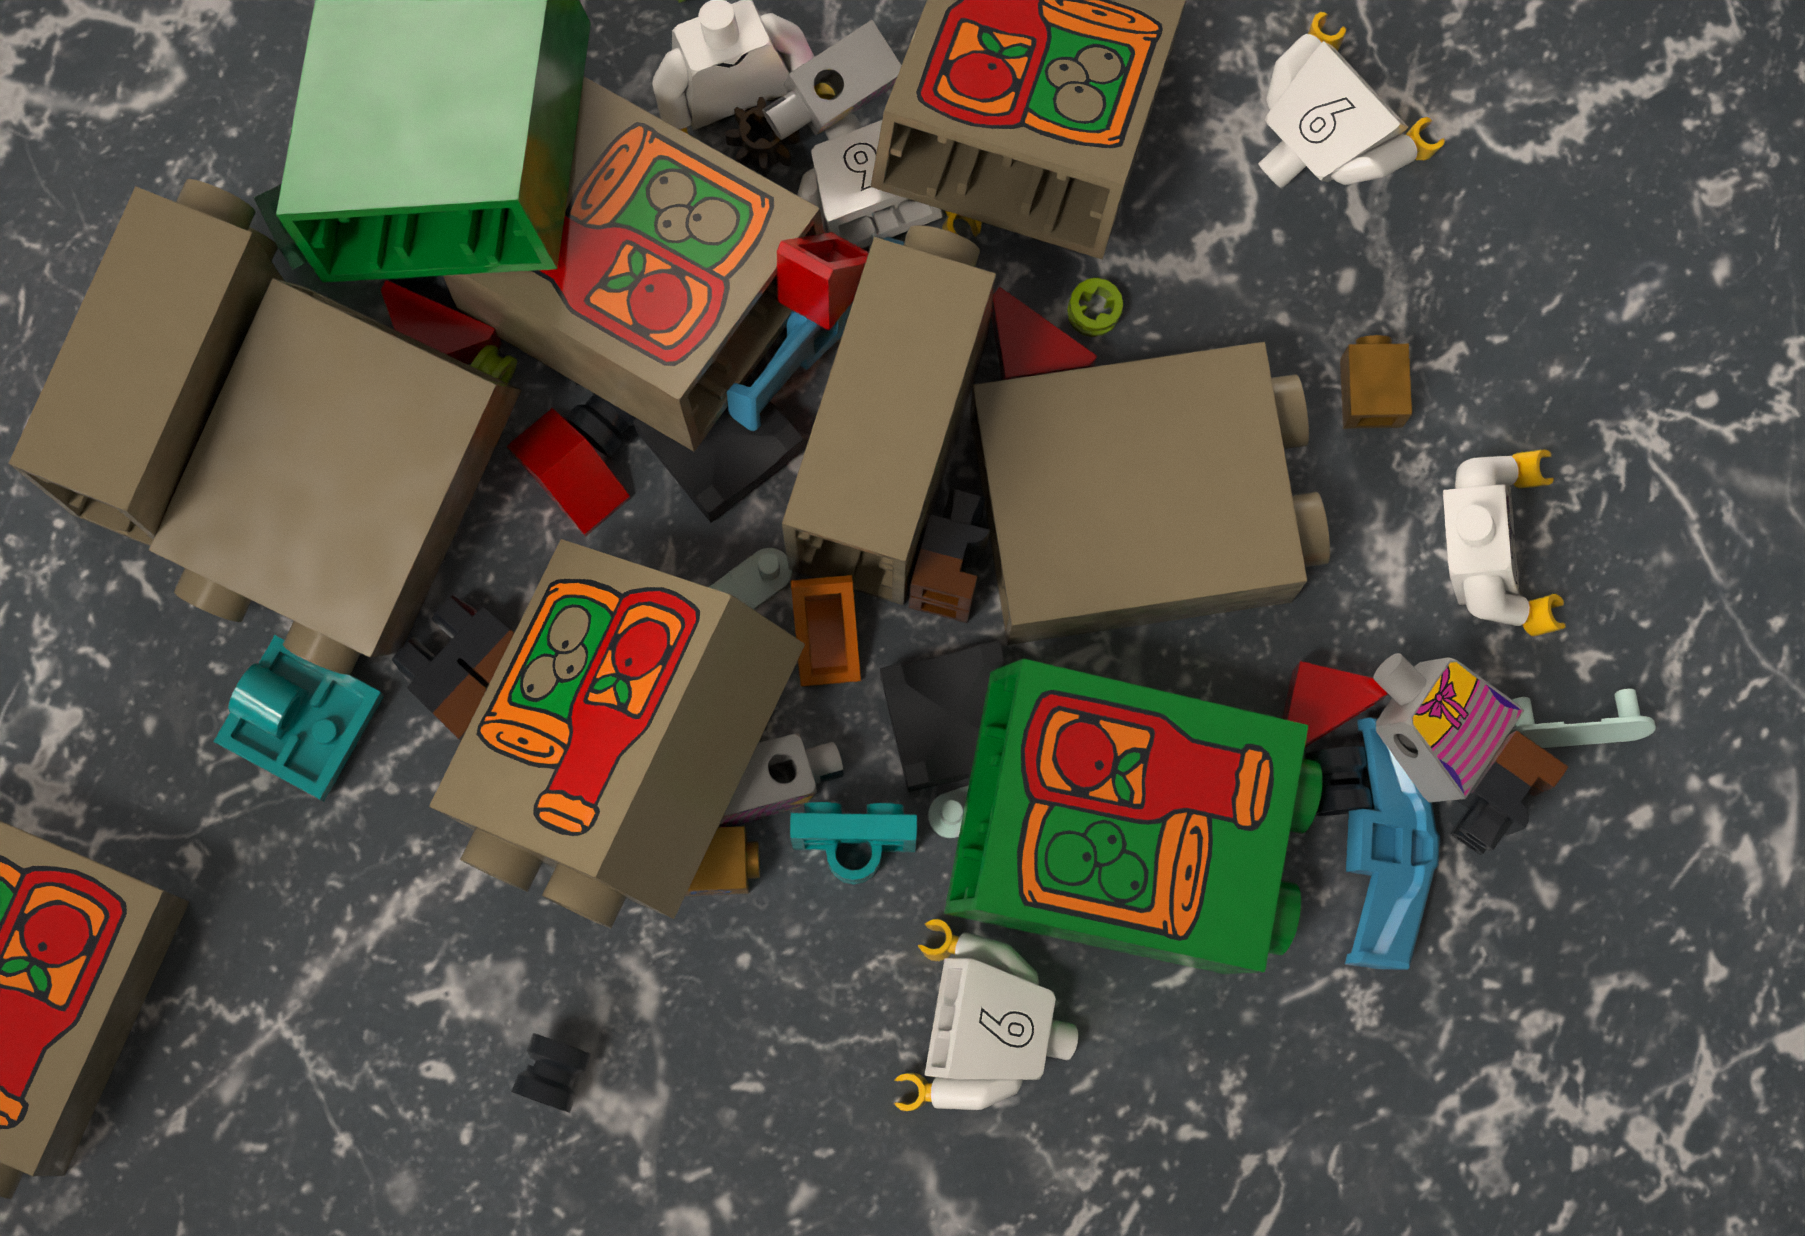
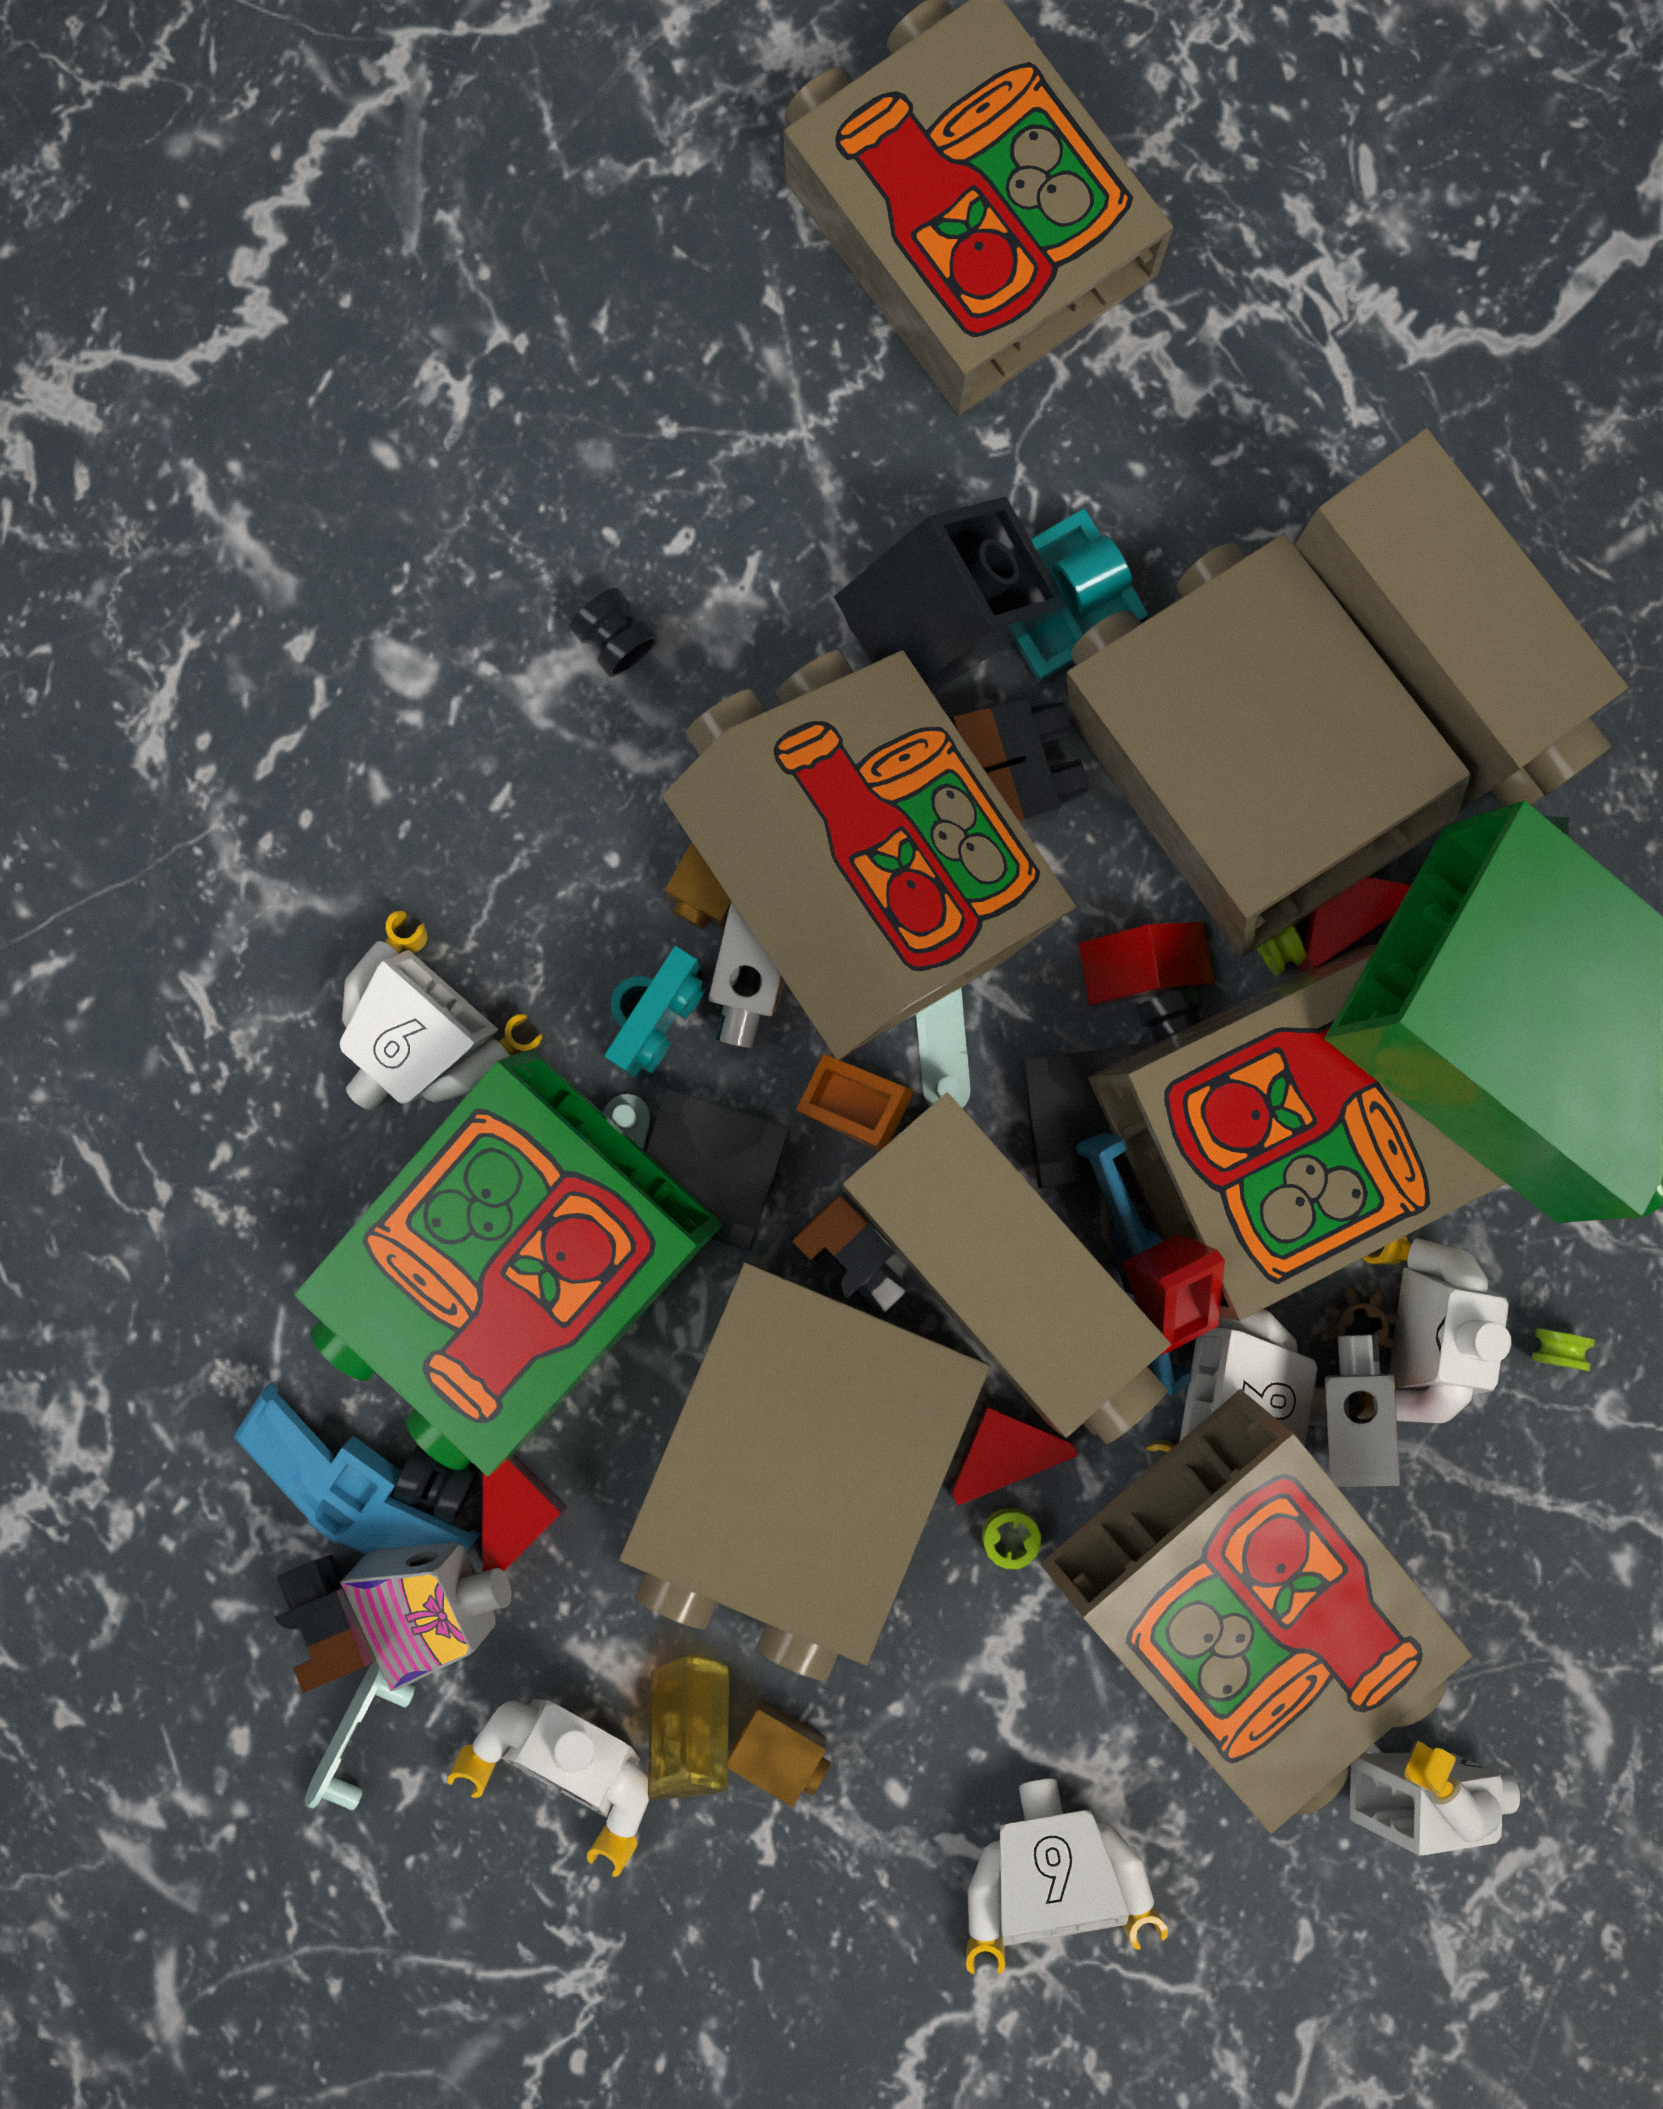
camera: 125 degrees right, 5 degrees up
(355, 800) = (952, 592): none -> black slope
(1401, 462) = (688, 1728): none -> clear yellow slope

